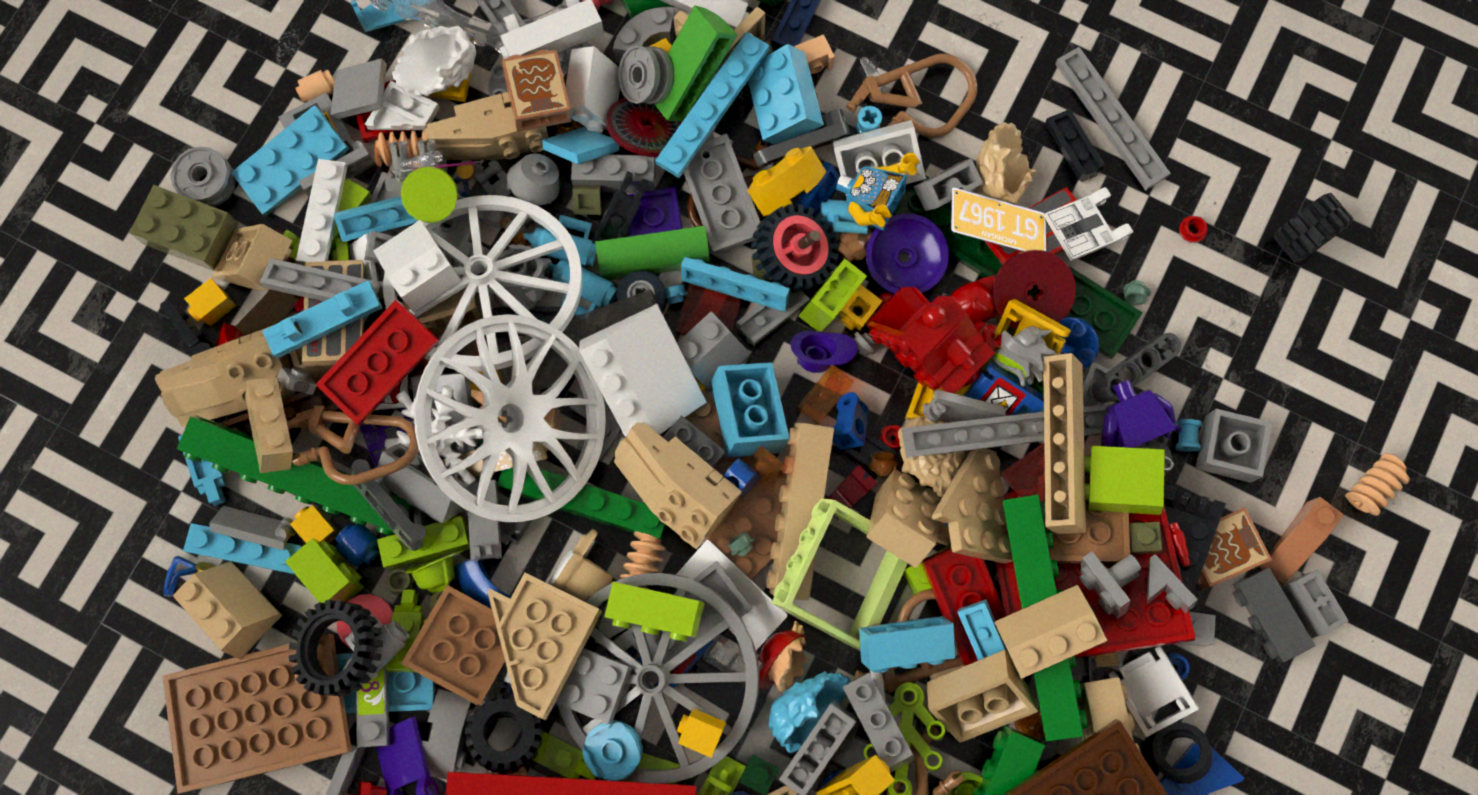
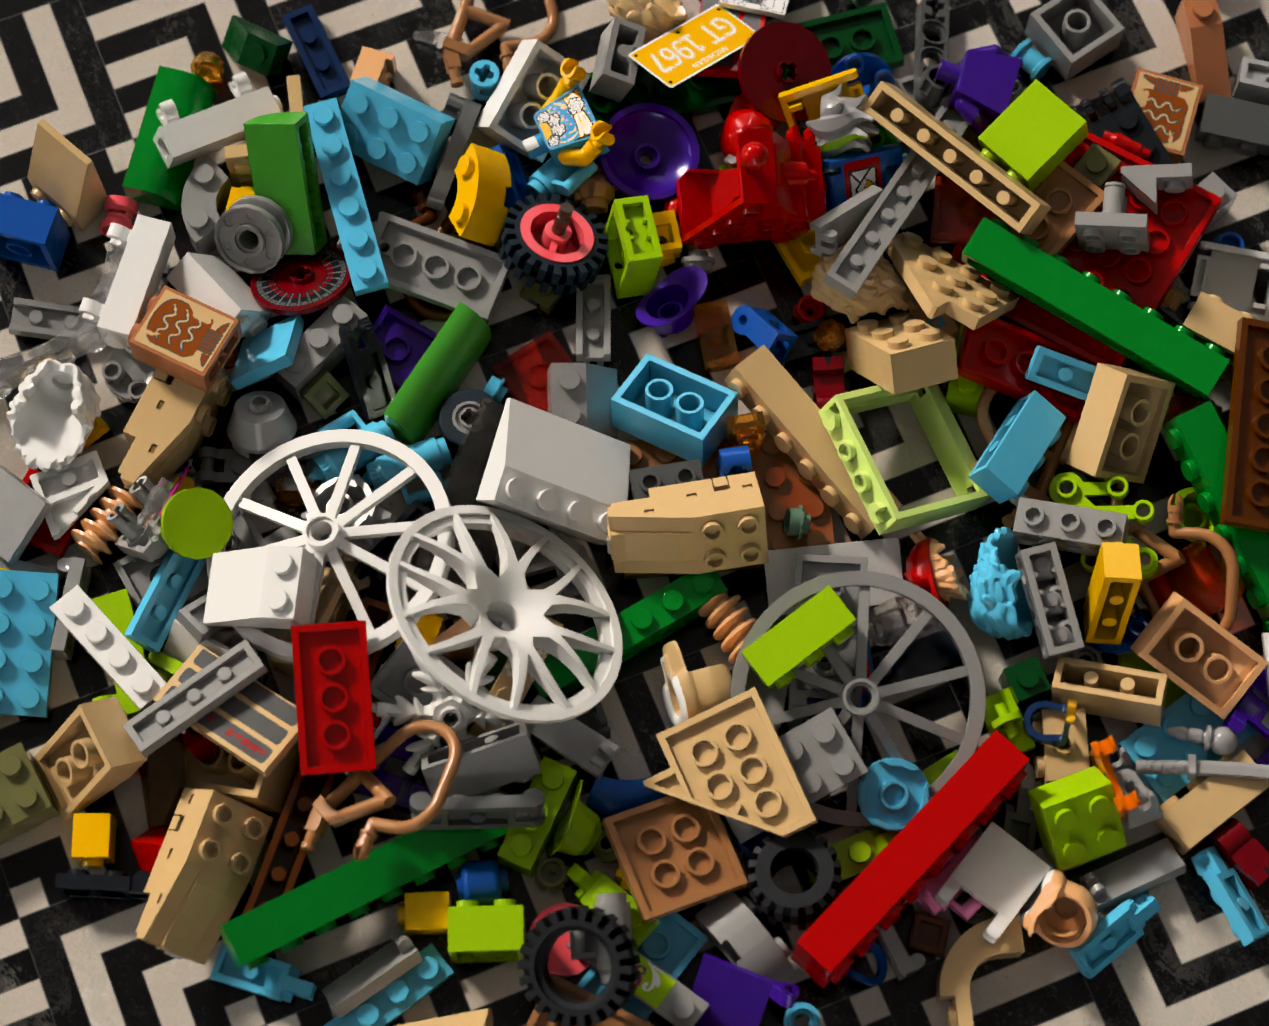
camera: 50 degrees left, 5 degrees down
(268, 425) = (298, 855): tan brick -> none
(297, 380) = (270, 799): light grey plate -> none
(322, 319) = (238, 718): medium azure hinge -> none
(700, 732) = (948, 690): yellow brick -> none
(735, 284) = (538, 325): medium azure plate -> none
(1050, 631) = (1116, 307): tan slope -> none

